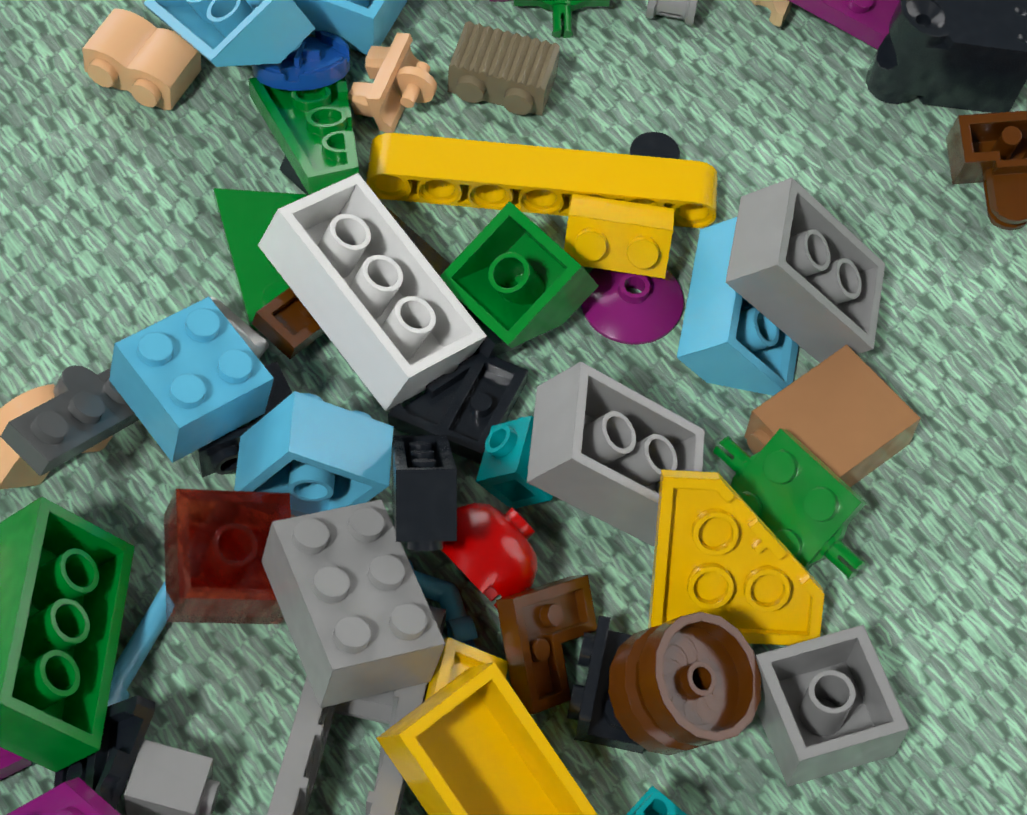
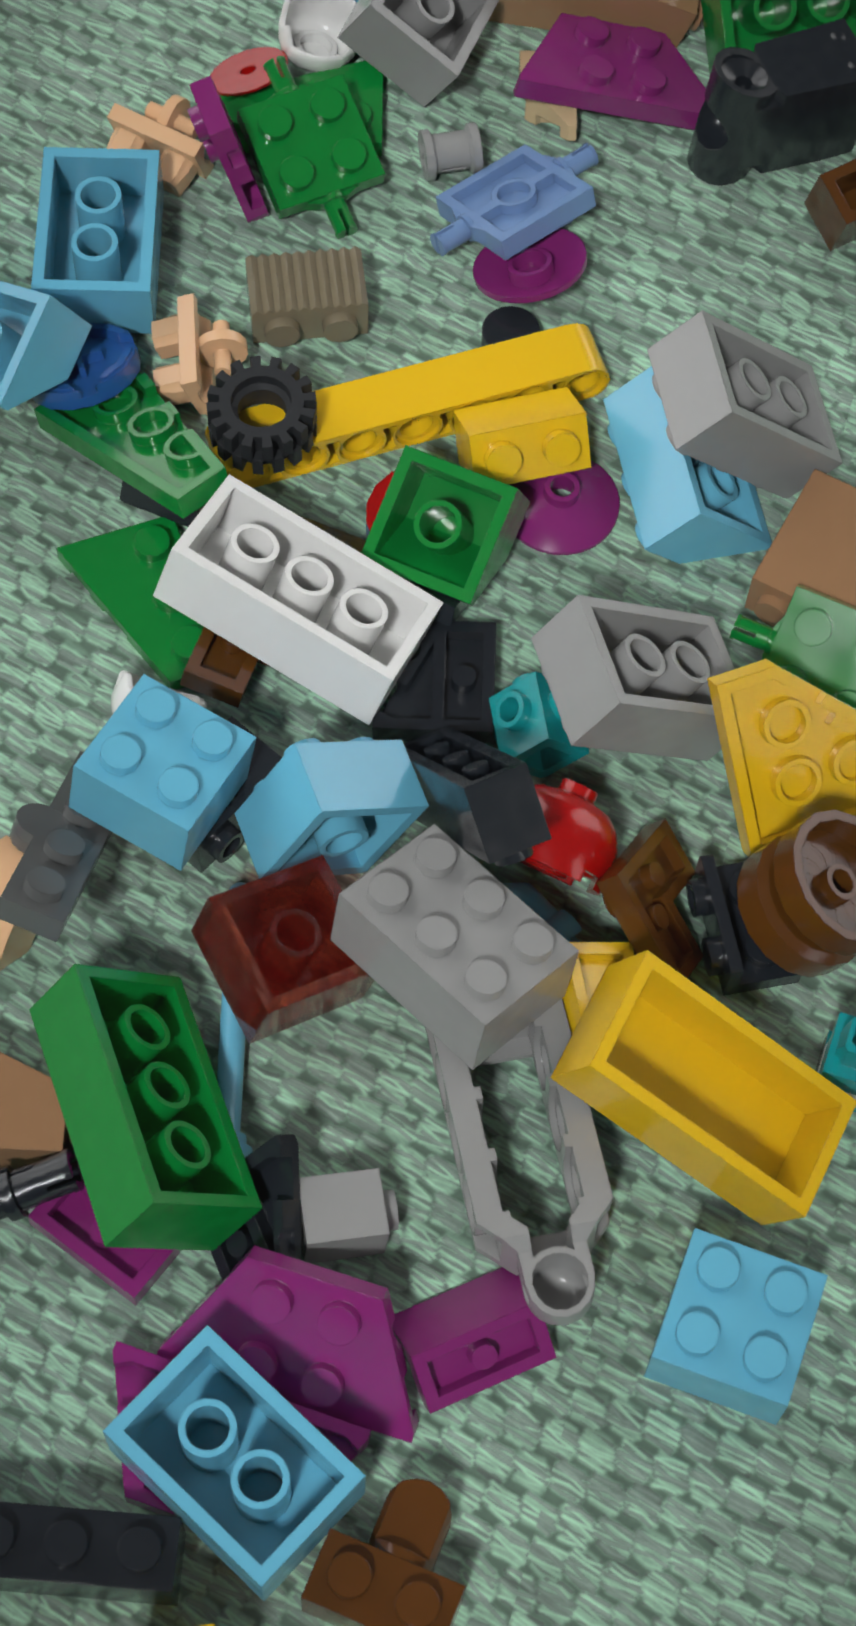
camera: 20 degrees left, 5 degrees up
(414, 118) = (262, 386): none -> black tyre
(693, 106) = (534, 274): none -> magenta dish
(705, 55) = (516, 201): none -> medium blue plate

